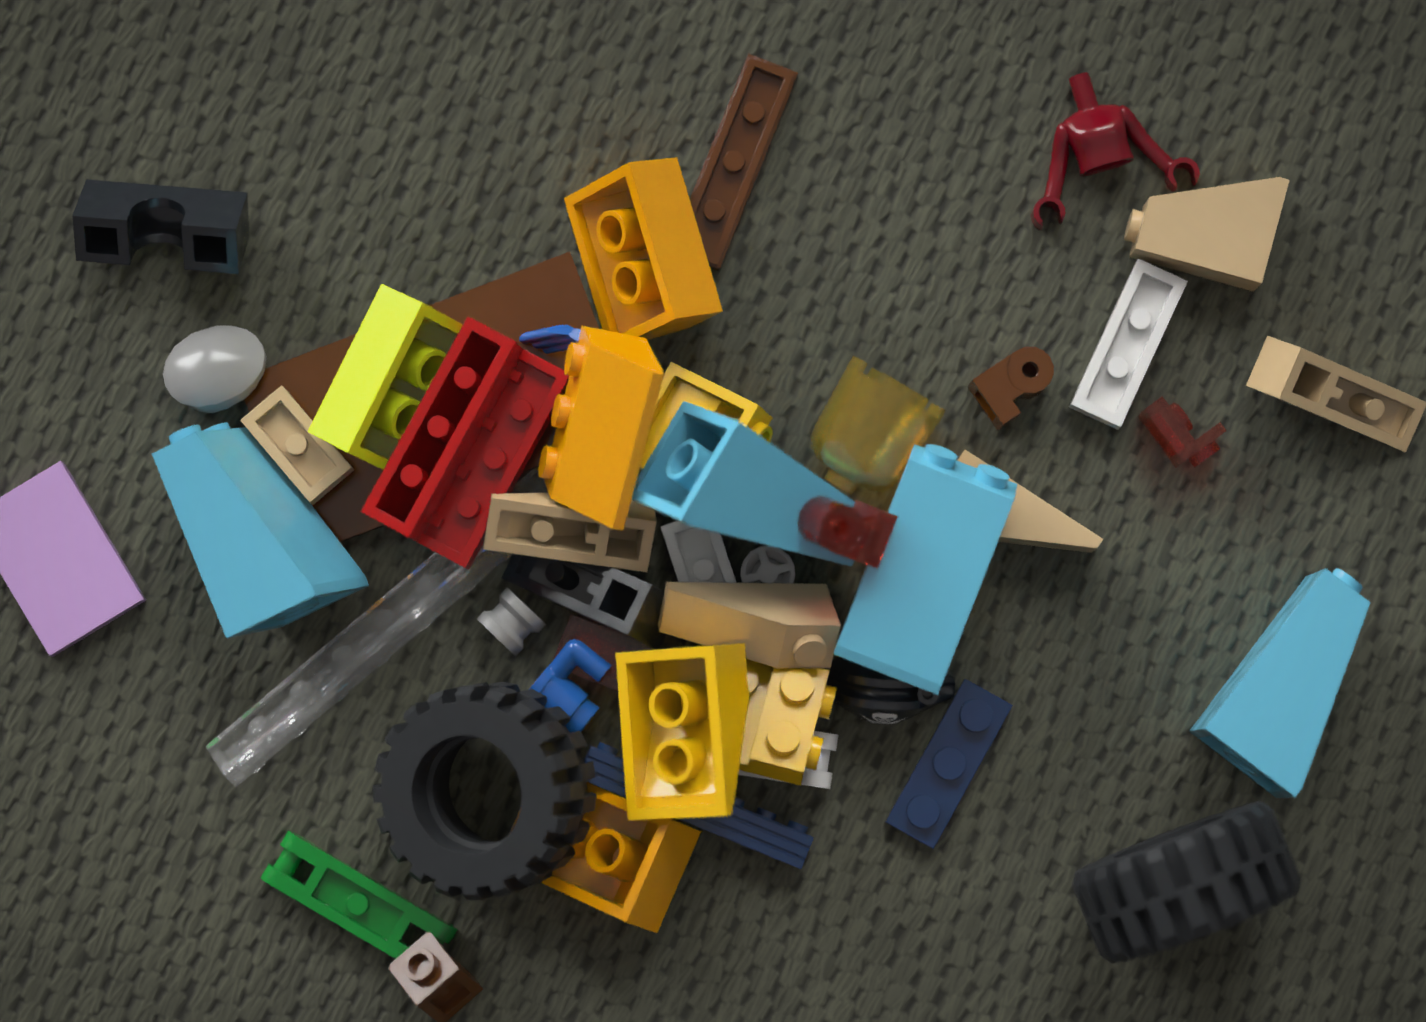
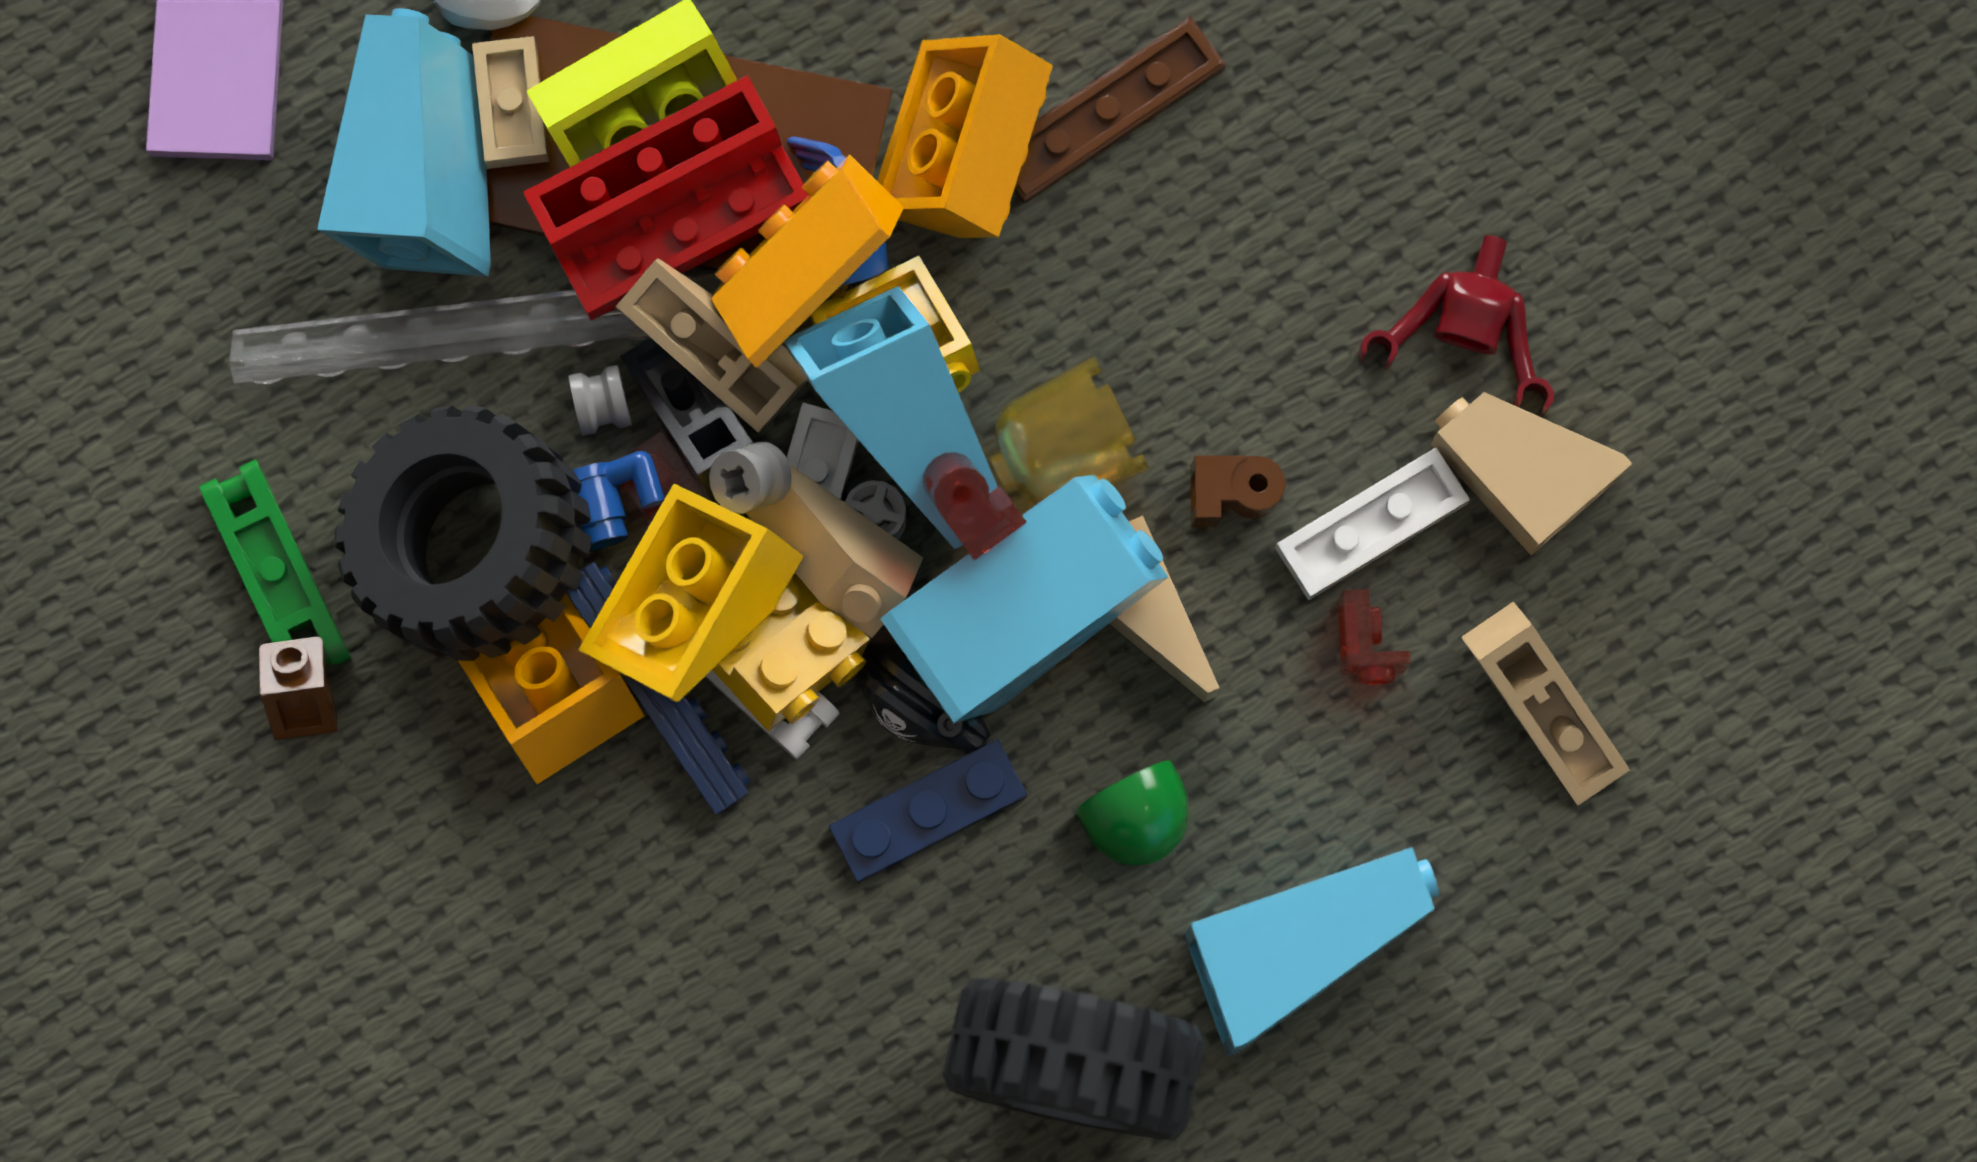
camera: 30 degrees right, 5 degrees down
(683, 609) = (750, 477): none -> light grey wheel
(1104, 669) = (1138, 816): none -> green helmet

